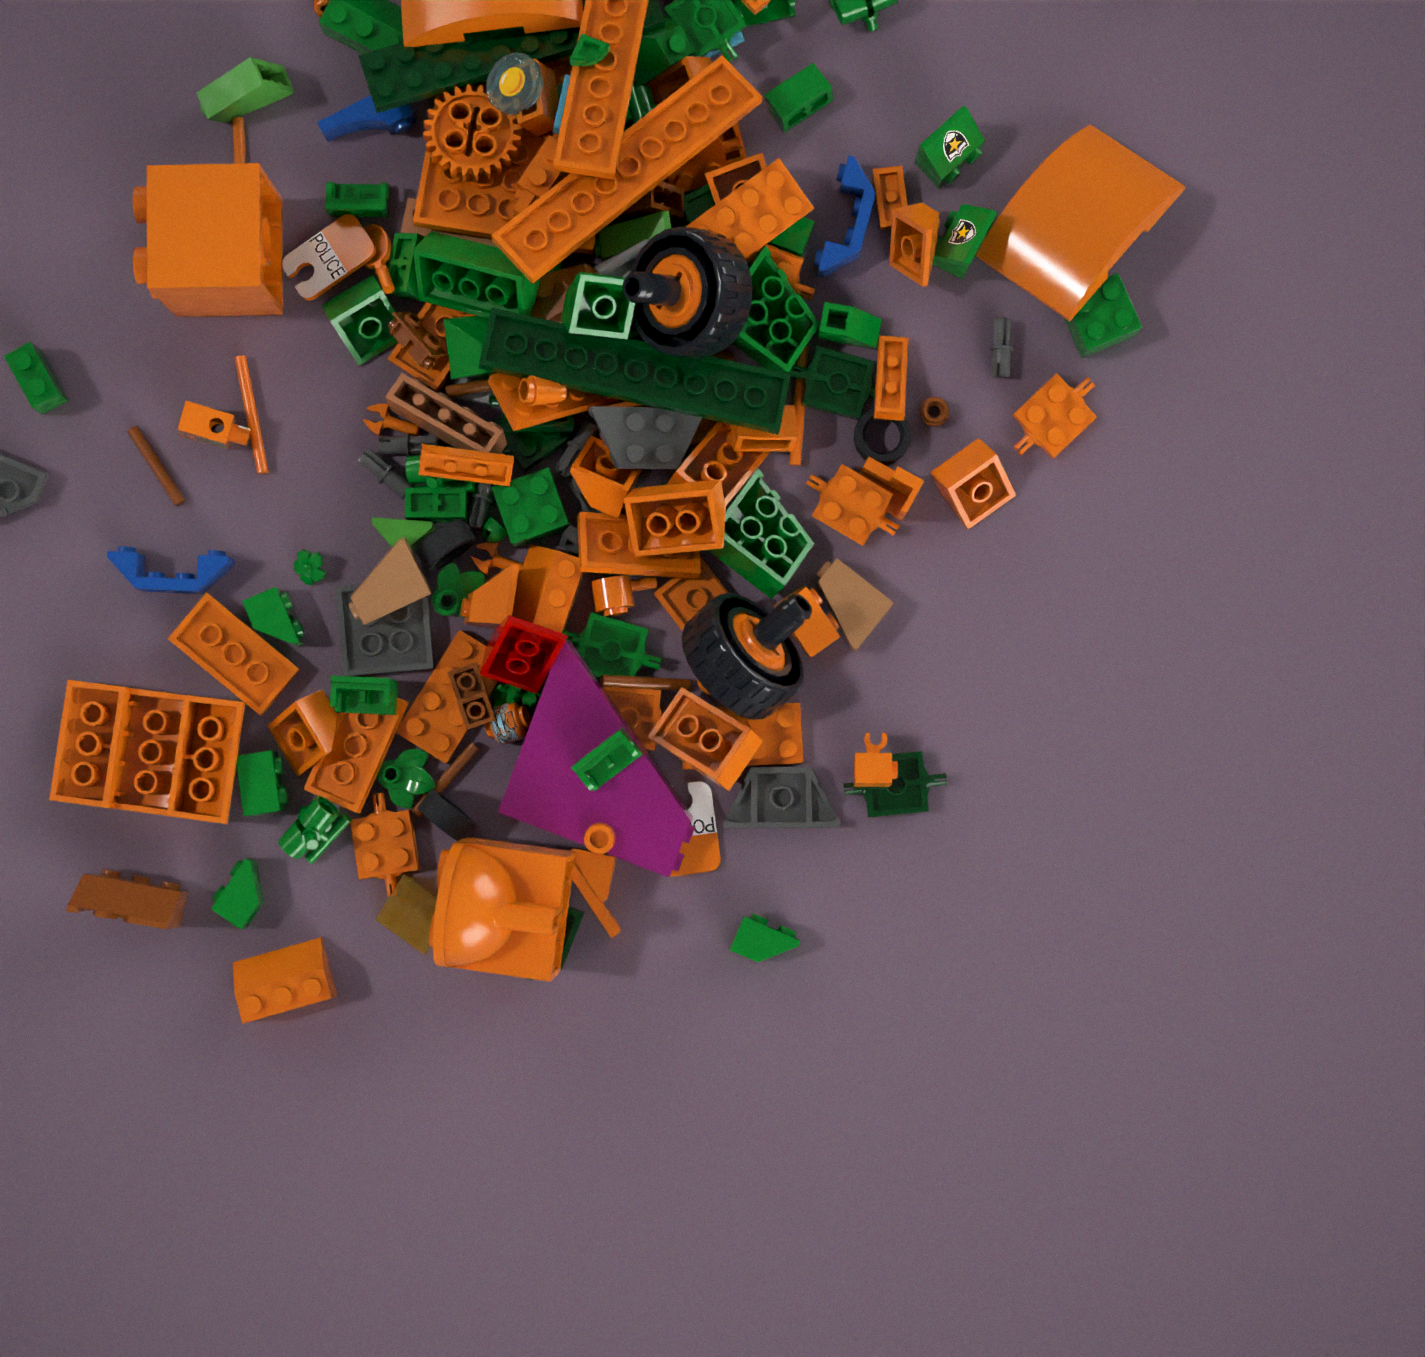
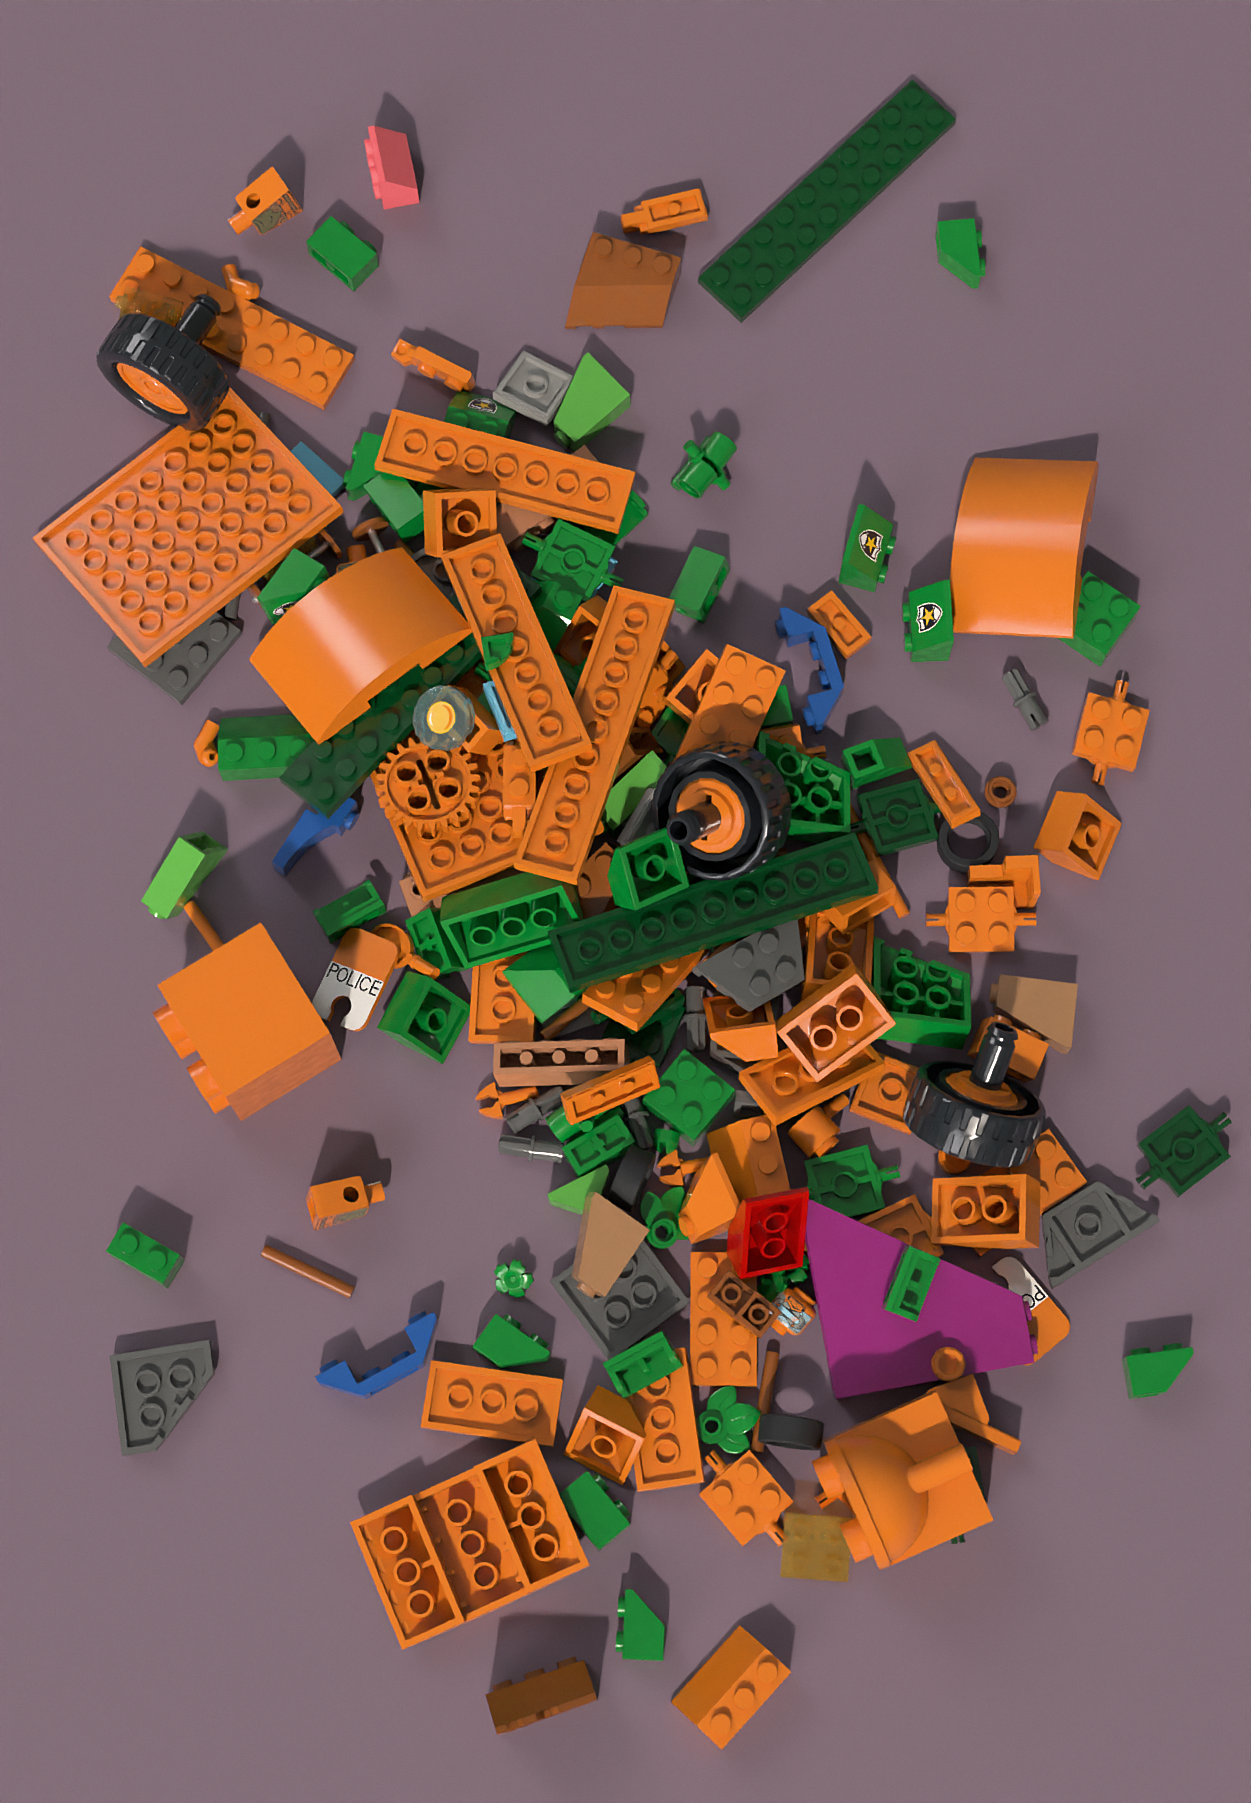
camera: 30 degrees left, 10 degrees down
(251, 414) = (369, 1169): orange bar -> none
(313, 830) = (672, 1523): green pin -> none
(408, 329) = (475, 999): dark orange hinge -> none
(540, 391) = (639, 980): orange cone -> none
(644, 682) = (894, 1196): dark orange bar -> none
(872, 767) = (1155, 1144): orange brick -> none
(914, 241) = (887, 650): orange slope -> none

